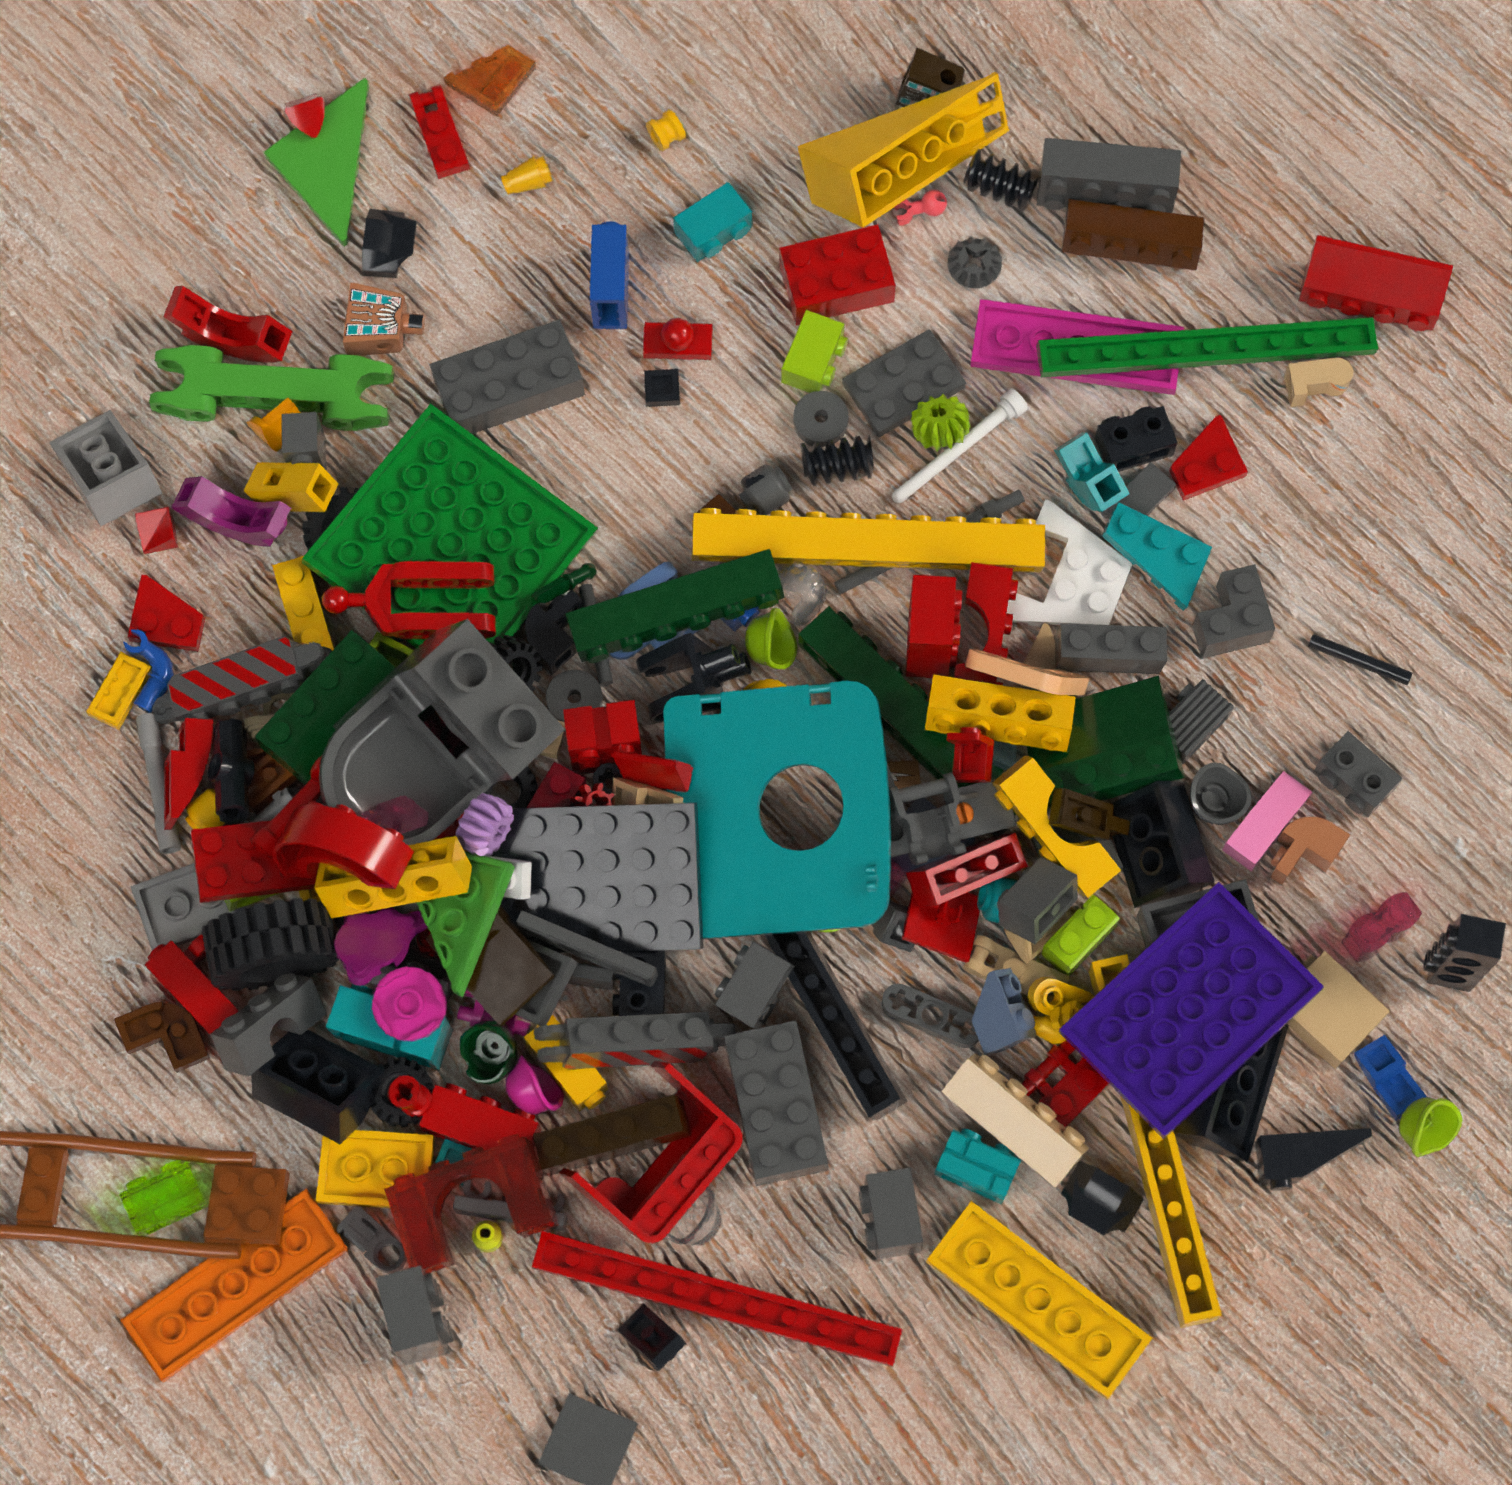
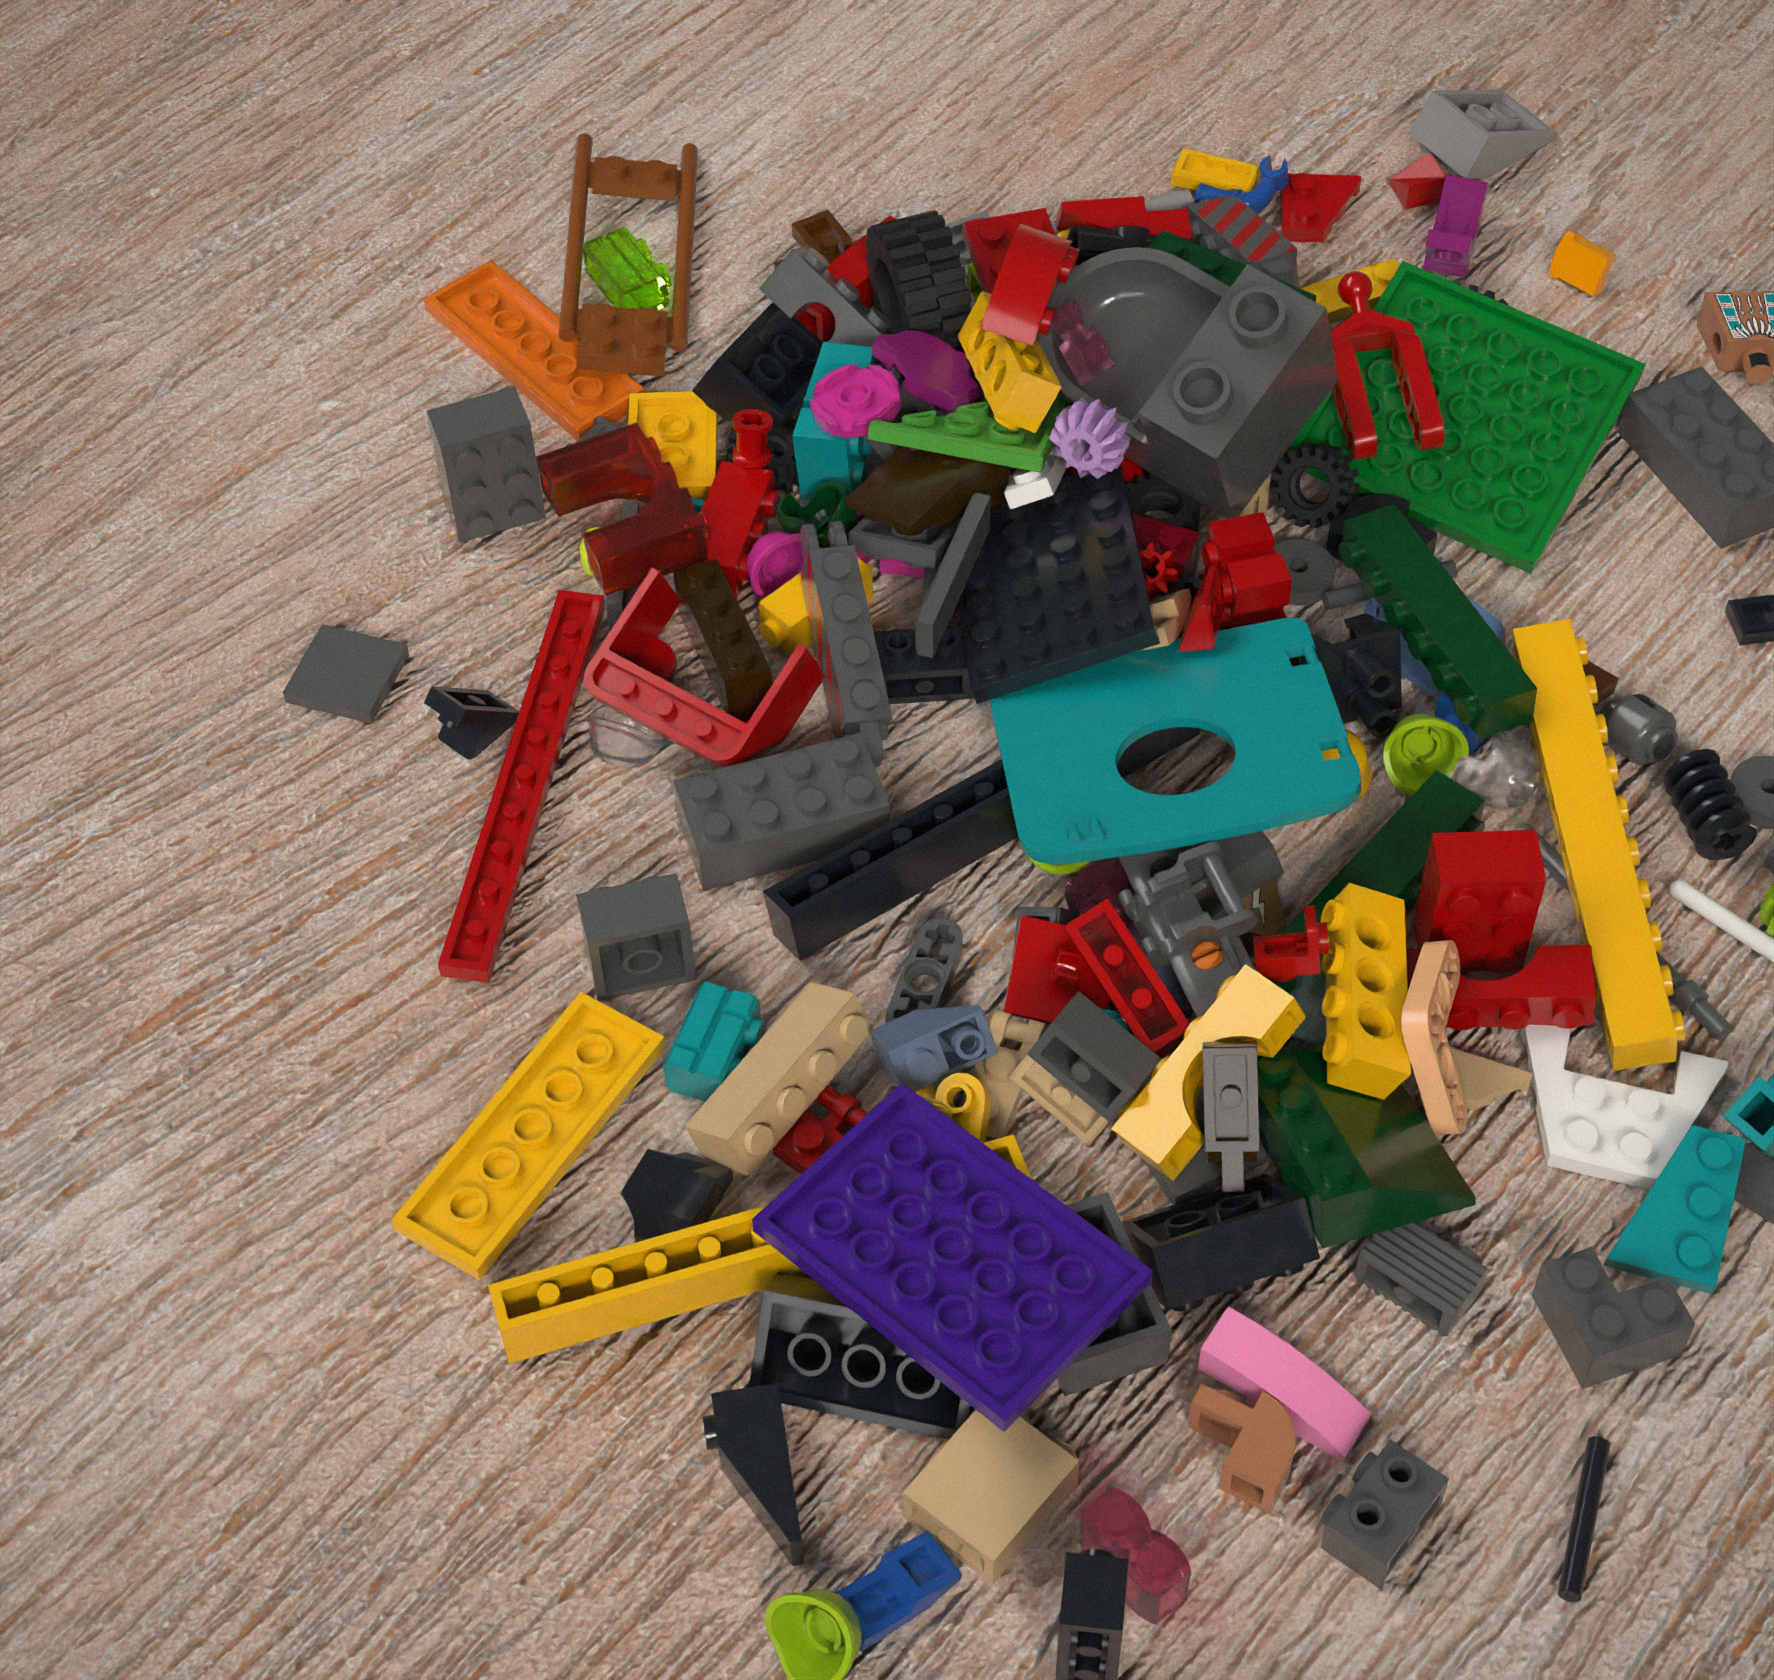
camera: 85 degrees right, 20 degrees down
(218, 384) = (1637, 296): bright green piece -> none
(238, 336) = (1687, 193): red arch -> none
(300, 485) = (1499, 265): yellow brick -> none
(303, 439) = (1556, 273): dark grey brick -> none
(565, 583) = (1452, 543): dark green piece -> none
(754, 985) = (924, 751): dark grey brick -> none
(1080, 936) = (1061, 1142): lime brick -> none
(1110, 648) = (1509, 1150): dark grey brick -> none
(1219, 794) = (1308, 1301): dark grey helmet -> none

